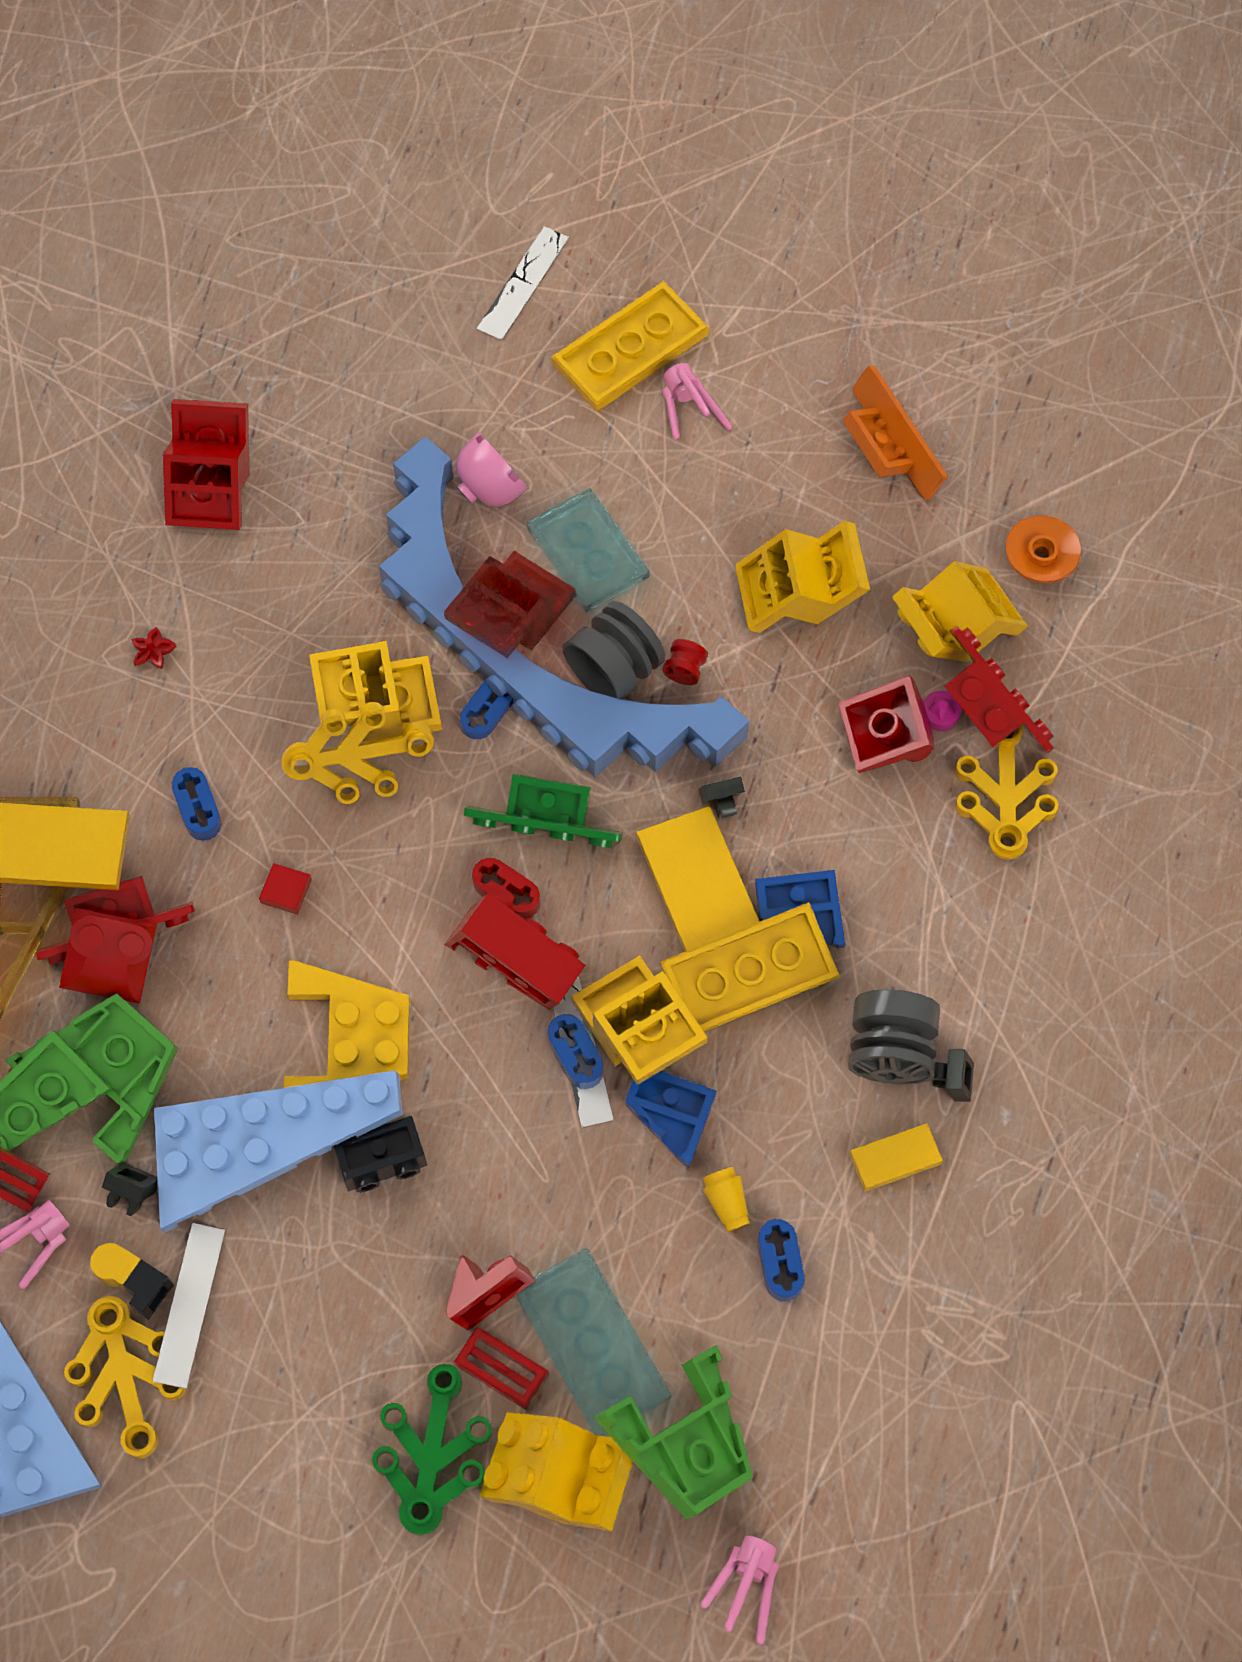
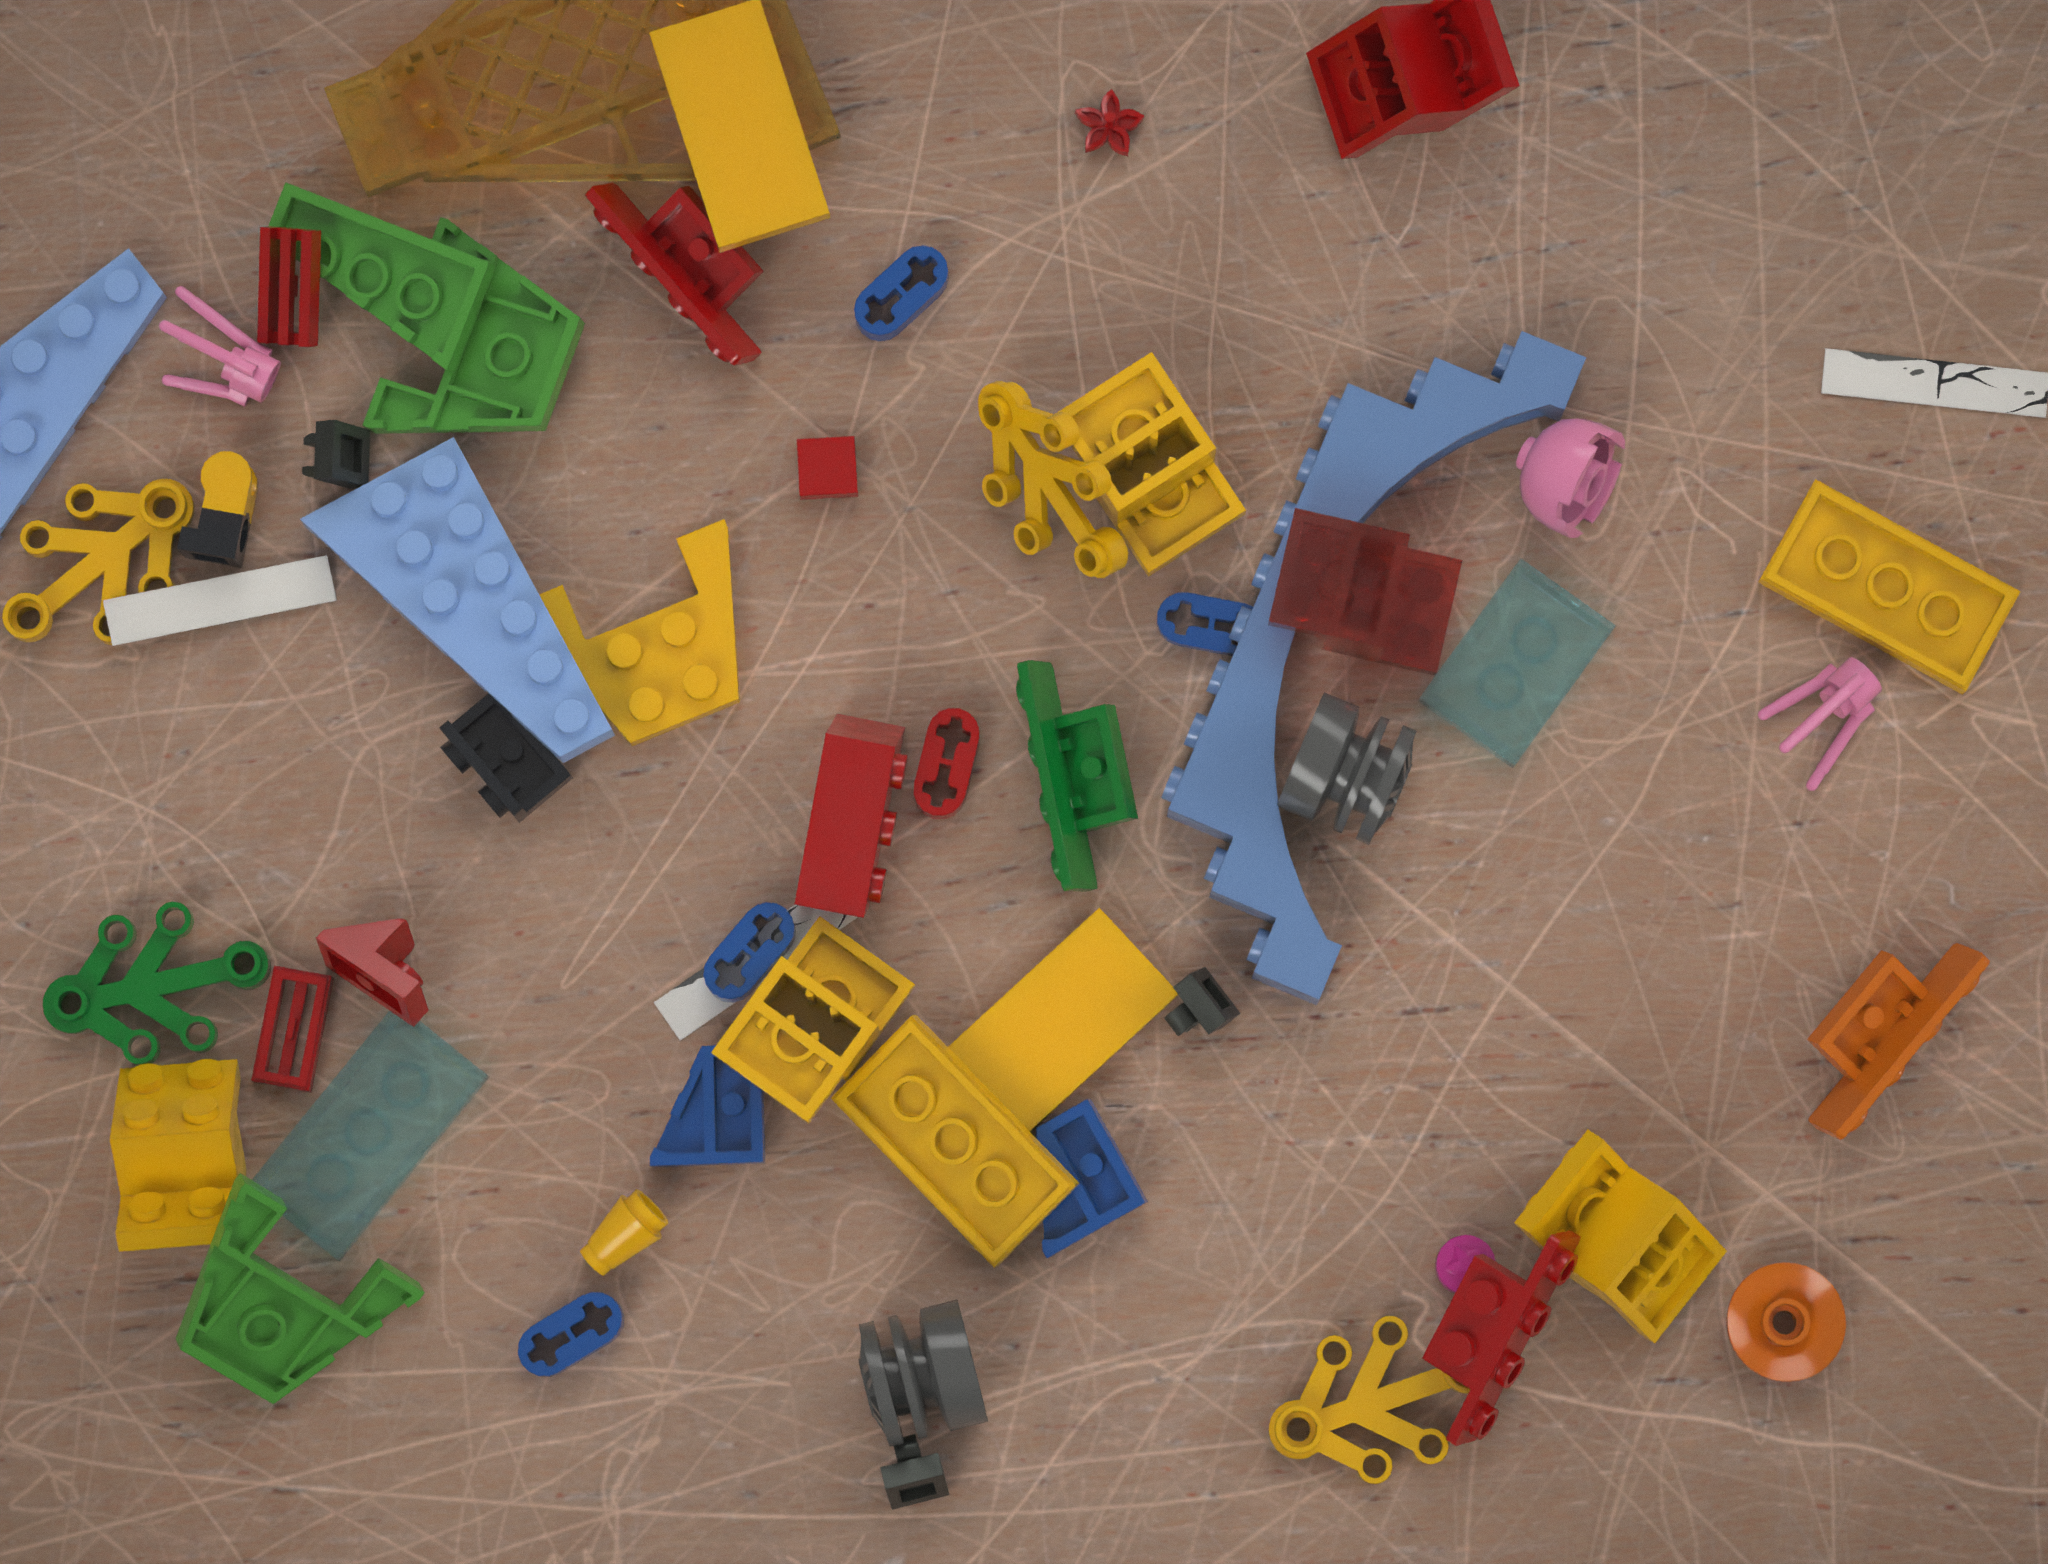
camera: 70 degrees right, 15 degrees up
(107, 955) = (628, 281): red slope -> none
(685, 662) = (1386, 873): red wheel -> none
(753, 1561) = (168, 1445): bright pink plant -> none
(802, 576) = (1583, 988): yellow bracket -> none
(887, 725) = (1401, 1197): red slope -> none
(895, 1157) = (771, 1436): yellow tile -> none

